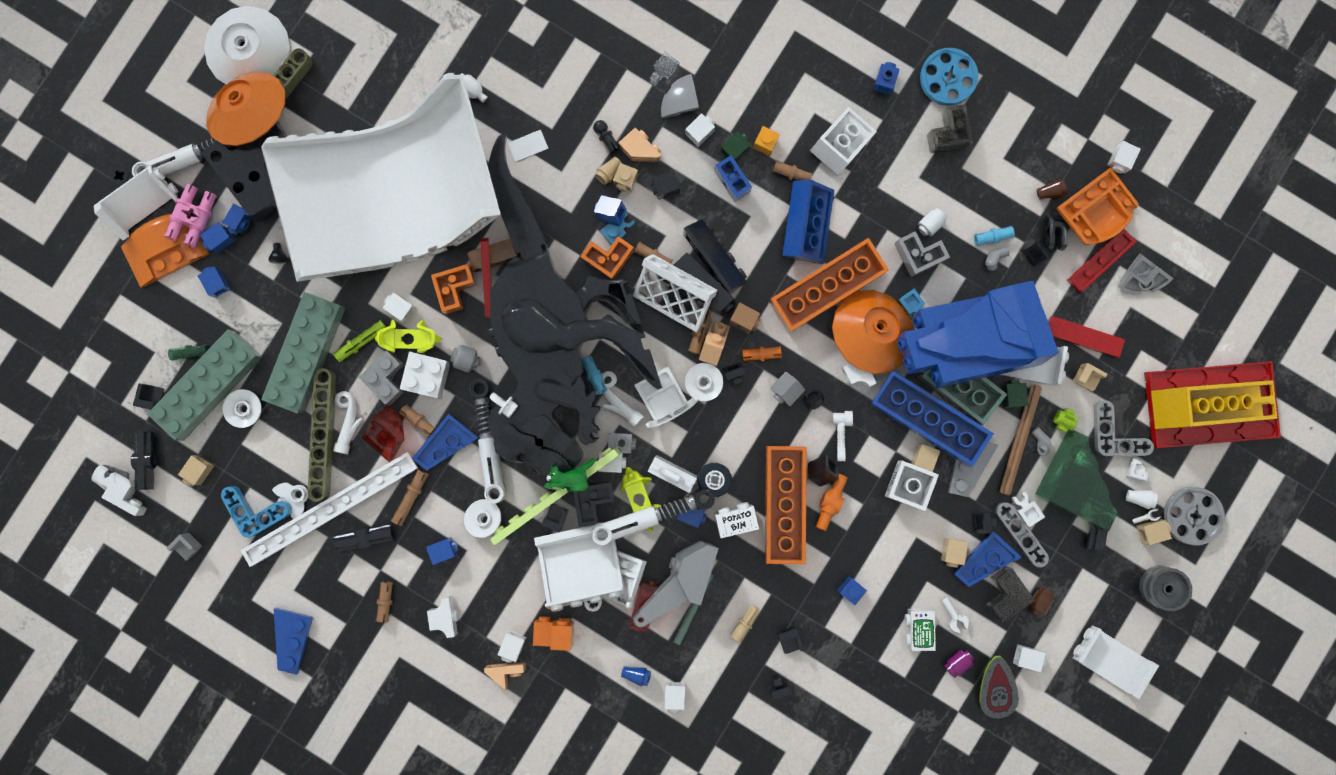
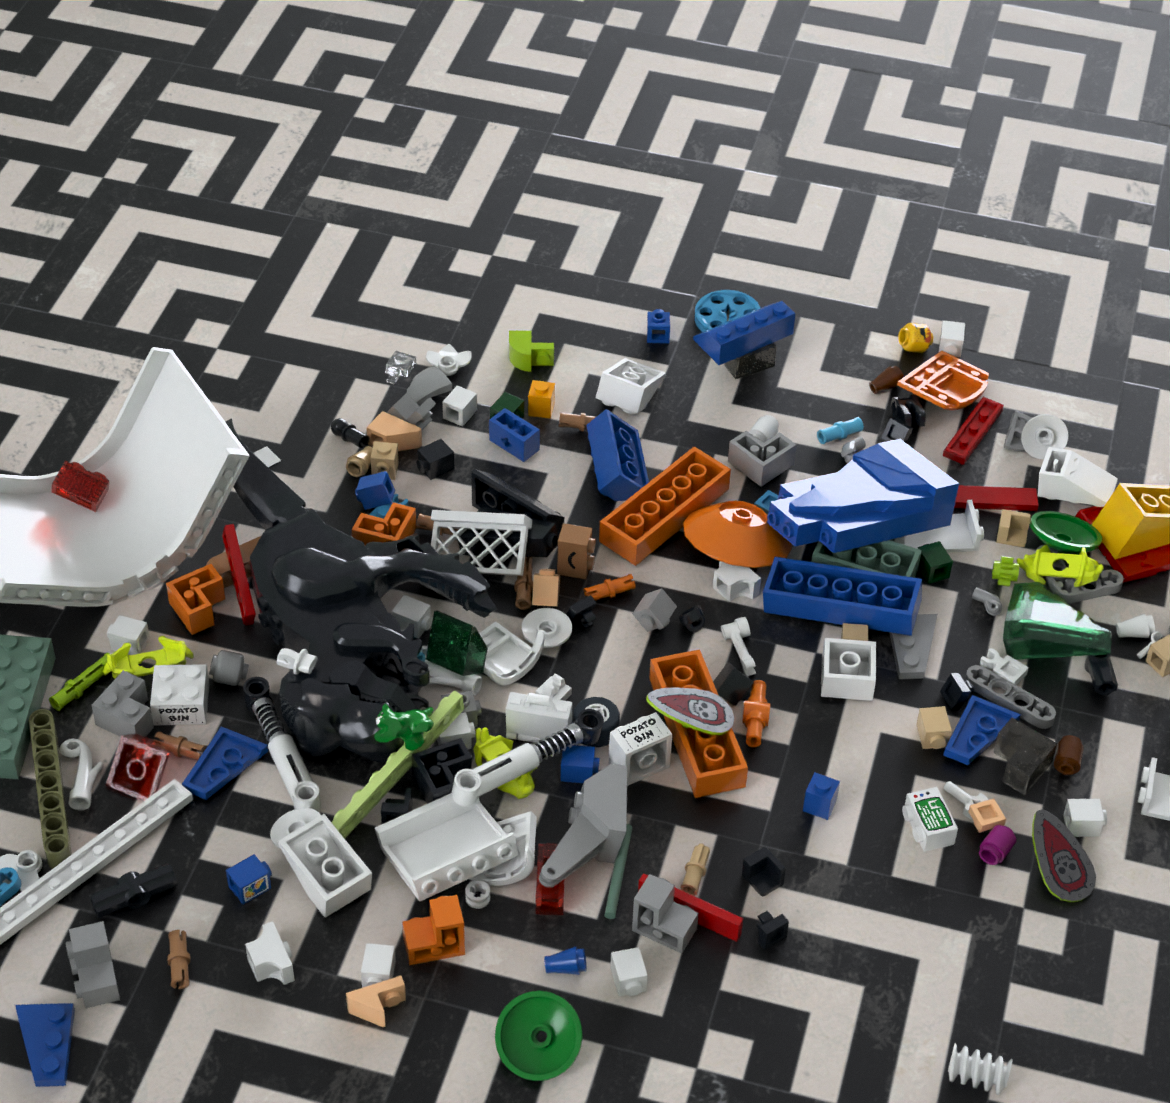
camera: 20 degrees left, 40 degrees down
(327, 599) = (93, 963): none -> light grey brick
(385, 150) = (80, 485): none -> clear red brick
(409, 497) = (192, 821): medium nougat pin -> none
(493, 562) = (326, 865): none -> white slope
(600, 734) = (518, 1032): none -> green dish
(607, 348) = (413, 611): none -> white brick
(628, 394) = (456, 645): none -> clear green slope
(657, 131) = (411, 412): none -> light grey brick
(693, 440) = (555, 687): none -> white tile
(705, 68) = (448, 359): none -> white plate
(710, 663) = (660, 917): none -> light grey brick
(731, 656) = (708, 914): none -> red tile
(767, 83) = (526, 354): none -> lime brick
(781, 511) = (693, 709): none -> shield
(951, 121) = (747, 332): none -> blue slope
(961, 640) = (986, 815): none -> light nougat tile
(1020, 440) = (962, 607): medium nougat axle -> none
(1094, 148) = (915, 337): none -> yellow head
(1095, 423) = (1080, 566): none -> neon yellow piece
(1128, 398) = (1065, 532): none -> green dish
(1137, 470) = (1116, 607): white tile -> none
(1153, 292) = (1056, 435): none -> white dish
(1158, 345) = (1074, 479): none -> white slope

